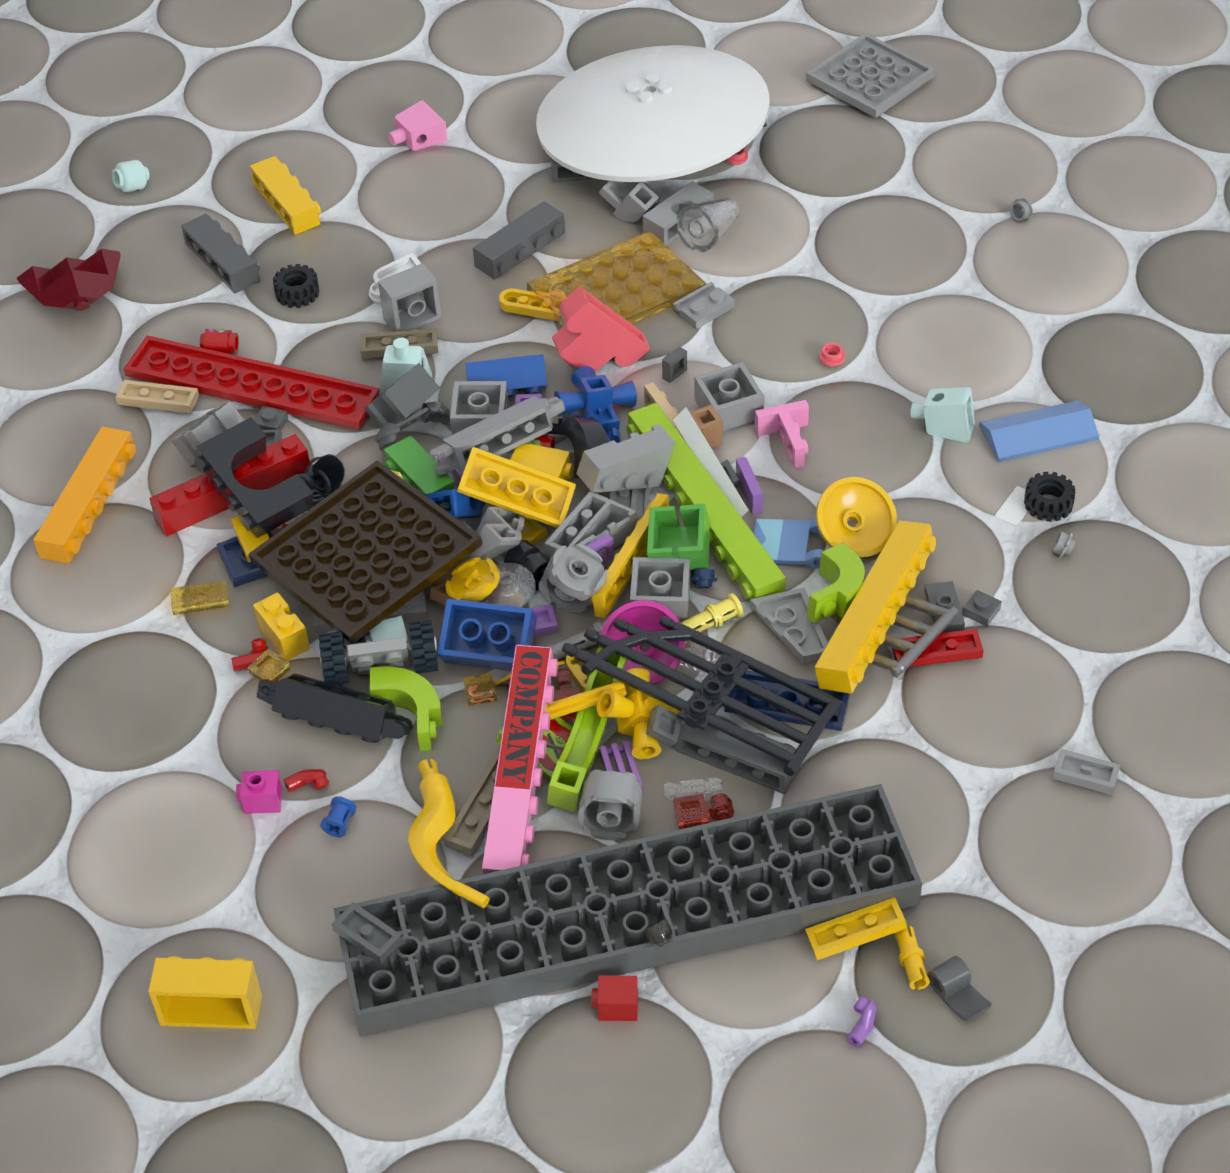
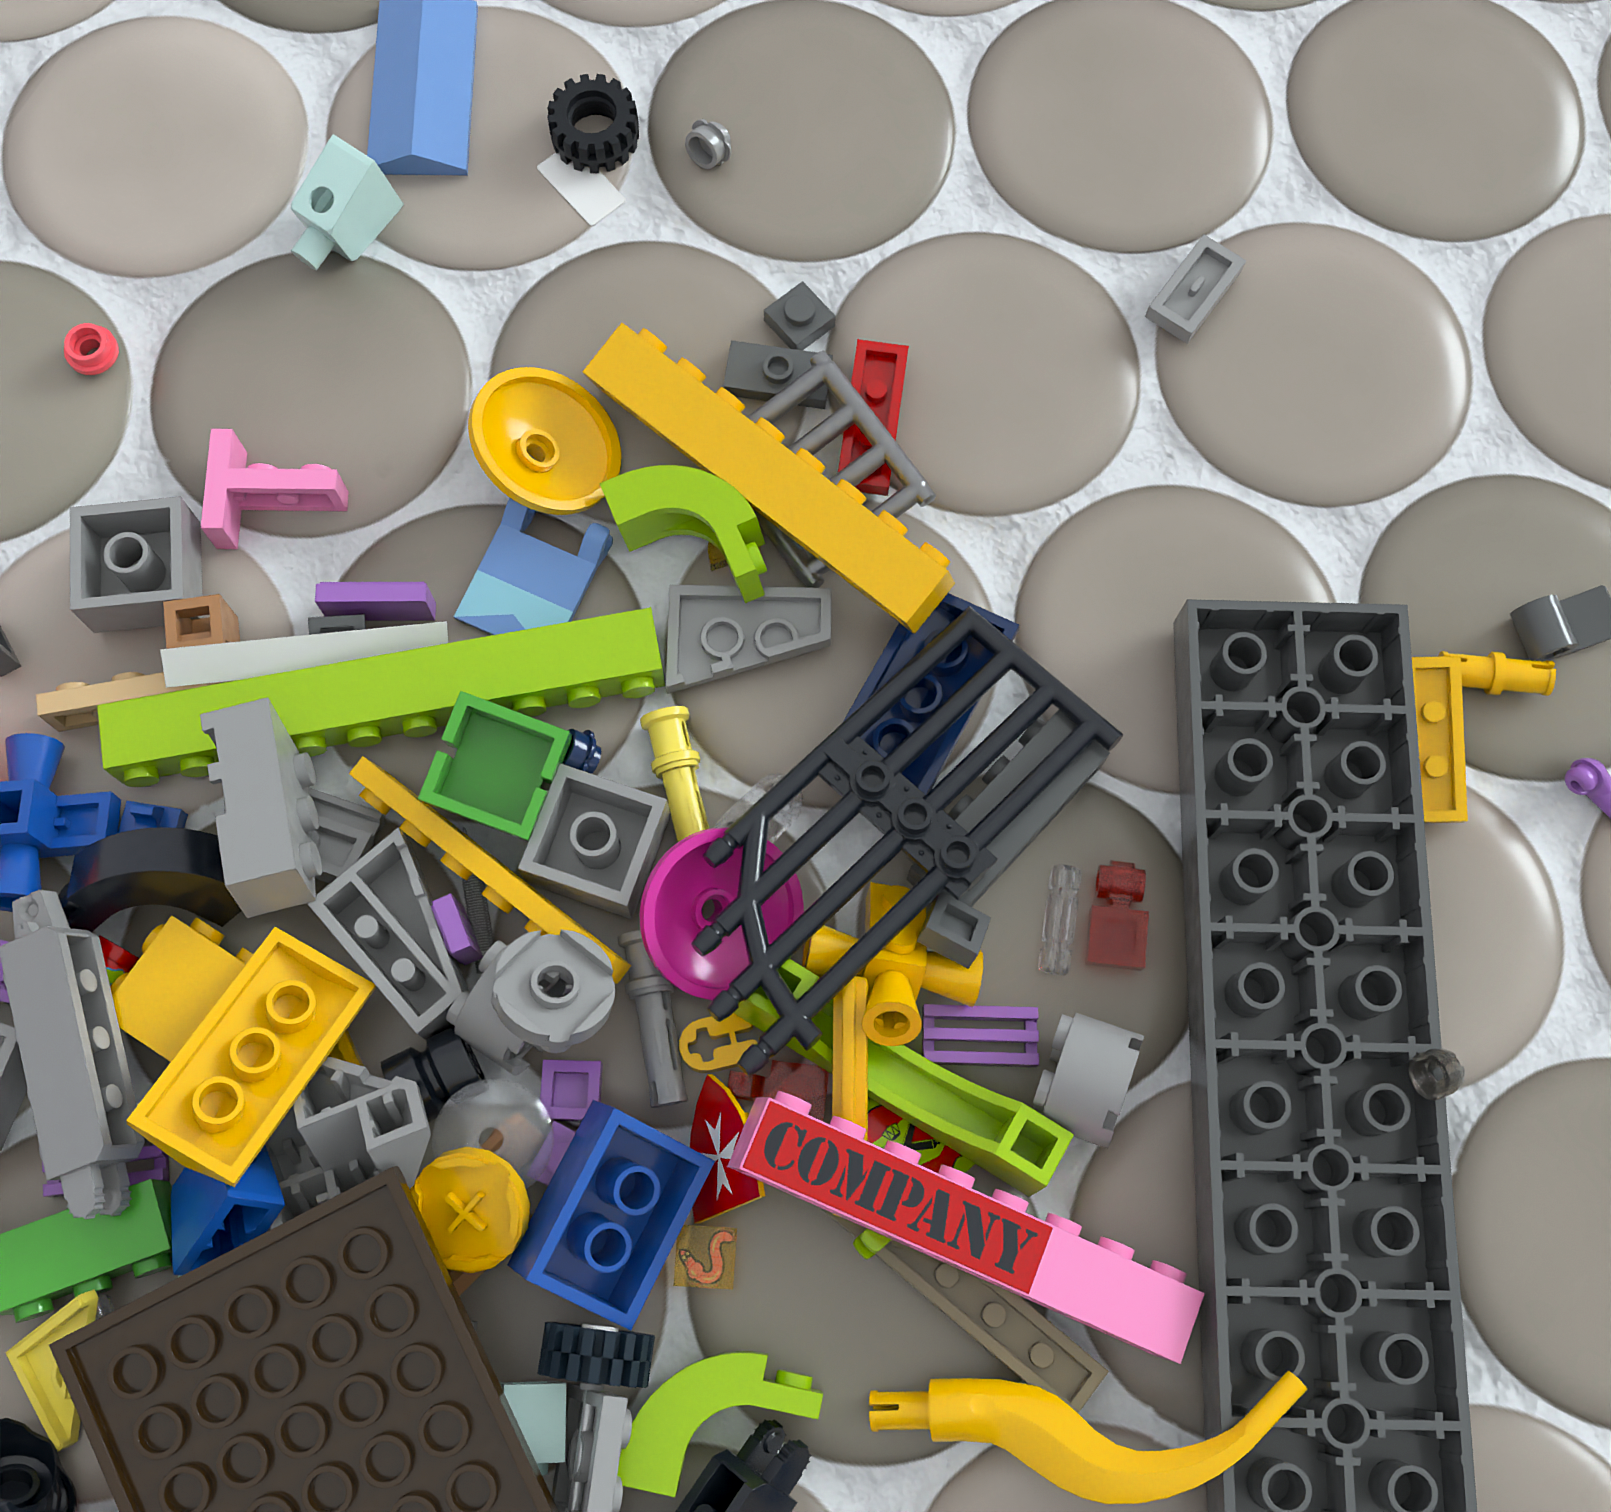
camera: 80 degrees left, 25 degrees up
(616, 998) = (1490, 1181): red brick -> none

